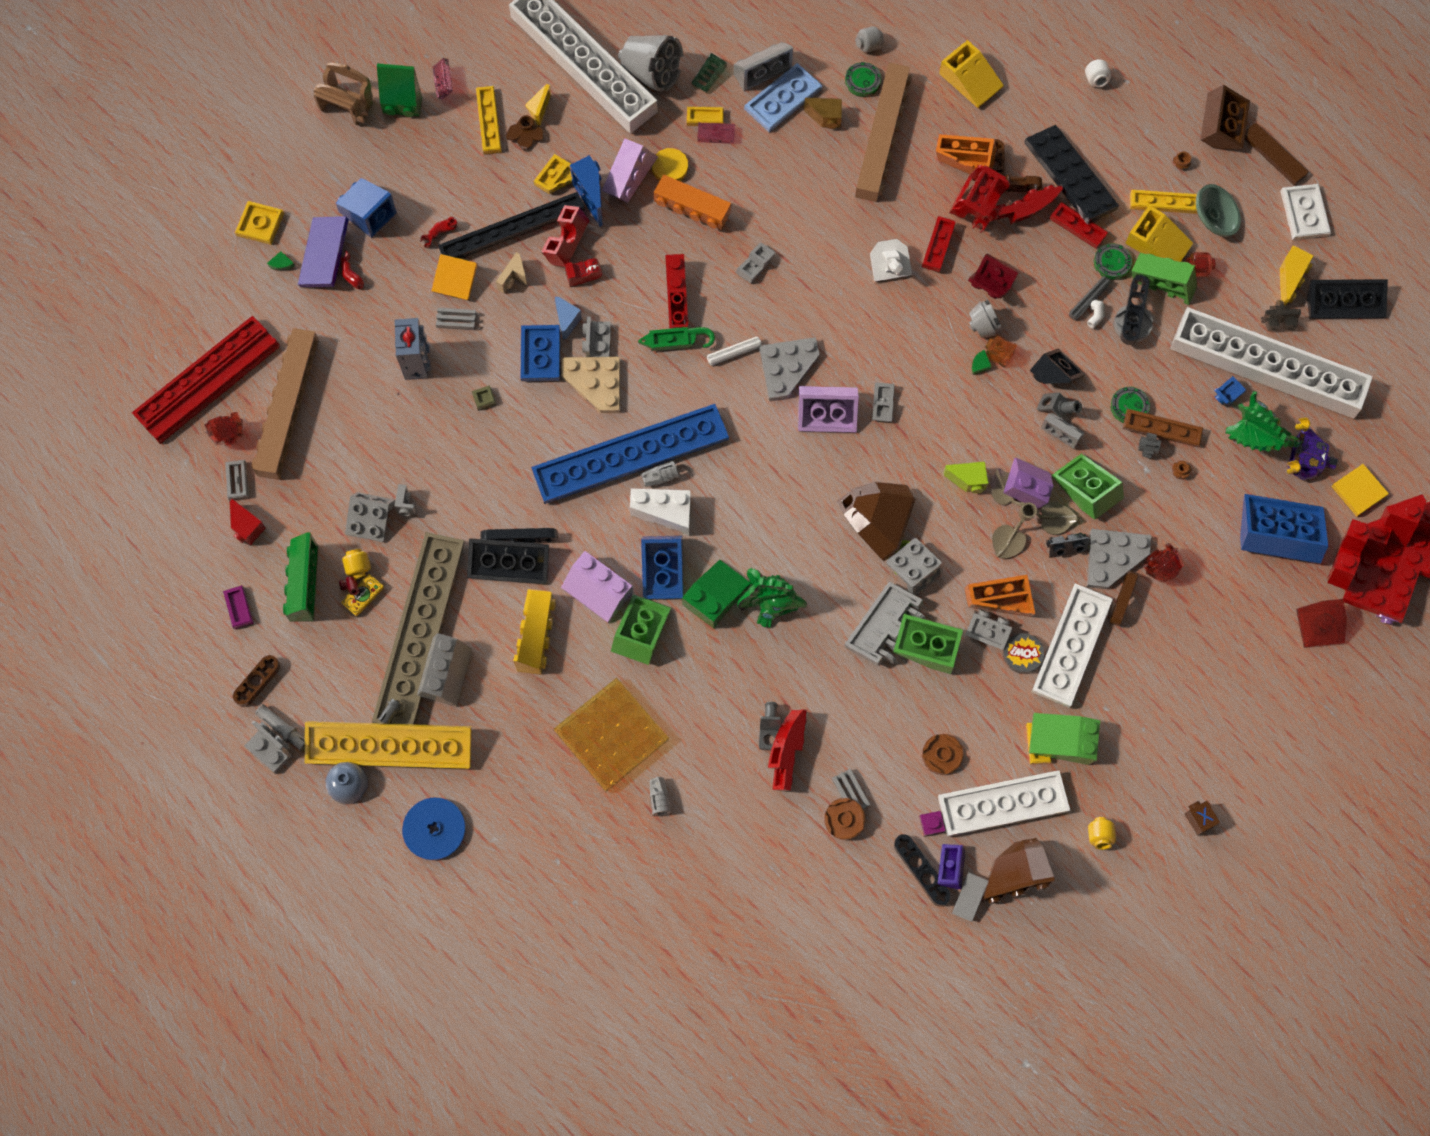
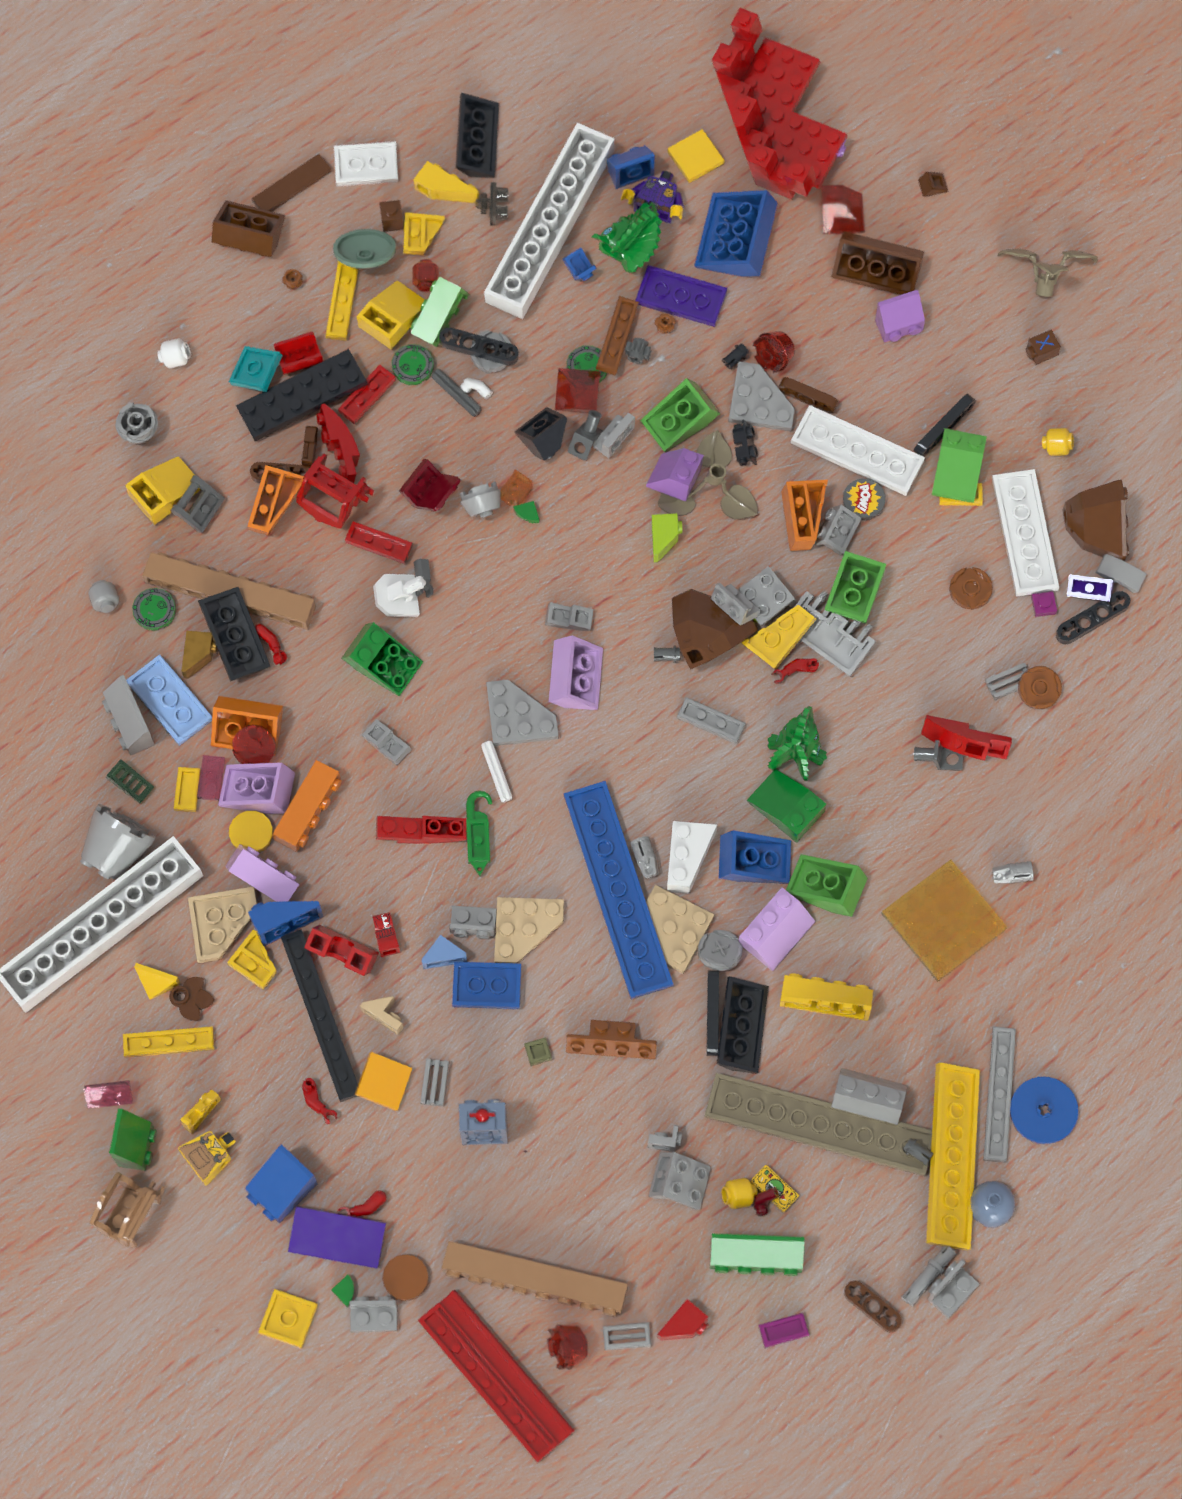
camera: 85 degrees left, 0 degrees up
(259, 284) = (373, 1315): none -> light grey bracket
(290, 306) = (405, 1277): none -> dark orange tile
(391, 152) = (207, 1154): none -> torso
(425, 142) = (200, 1111): none -> yellow wing
(449, 788) = (999, 1094): none -> light grey tile
(495, 454) = (611, 1039): none -> dark orange bracket
(576, 538) = (720, 950): none -> light grey tile
(589, 140) = (219, 920): none -> tan plate
(598, 505) = (677, 926): none -> tan plate
(707, 165) = (257, 787): none -> lavender slope
(743, 158) = (253, 745): none -> clear red tile
(763, 153) = (234, 714): none -> orange slope
(793, 526) = (711, 720): none -> light grey tile
(830, 253) = (382, 658): none -> green slope
(841, 134) = (234, 634): none -> black slope
(842, 168) = (272, 640): none -> red arm
(852, 600) = (796, 665): none -> red arm
(853, 481) = (667, 654): none -> dark grey pin
(875, 579) = (779, 638): none -> yellow wing
(902, 534) = (734, 603): none -> light grey bracket
(910, 280) = (422, 569): none -> dark grey bar
(956, 106) = (202, 509): none -> dark grey plate
(1027, 47) = (136, 423): none -> light grey cone
(1091, 136) = (255, 368): none -> teal plate
(1102, 397) = (577, 390): none -> clear red slope
(1108, 725) = (950, 419): none -> black beam
(1110, 168) = (298, 352): none -> red bracket
(1155, 532) = (735, 356): none -> black pin
(1212, 483) = (681, 295): none -> dark purple tile
(1214, 677) = (900, 316): none -> medium lavender slope
(1243, 258) = (420, 232): none -> yellow wing
(1255, 232) = (391, 216): none -> reddish brown brick
(1270, 658) = (877, 264): none -> reddish brown slope
(1277, 818) = (1046, 281): none -> dark tan plant
(1337, 430) = (631, 166): none -> blue slope
(1366, 710) = (932, 184): none -> reddish brown slope

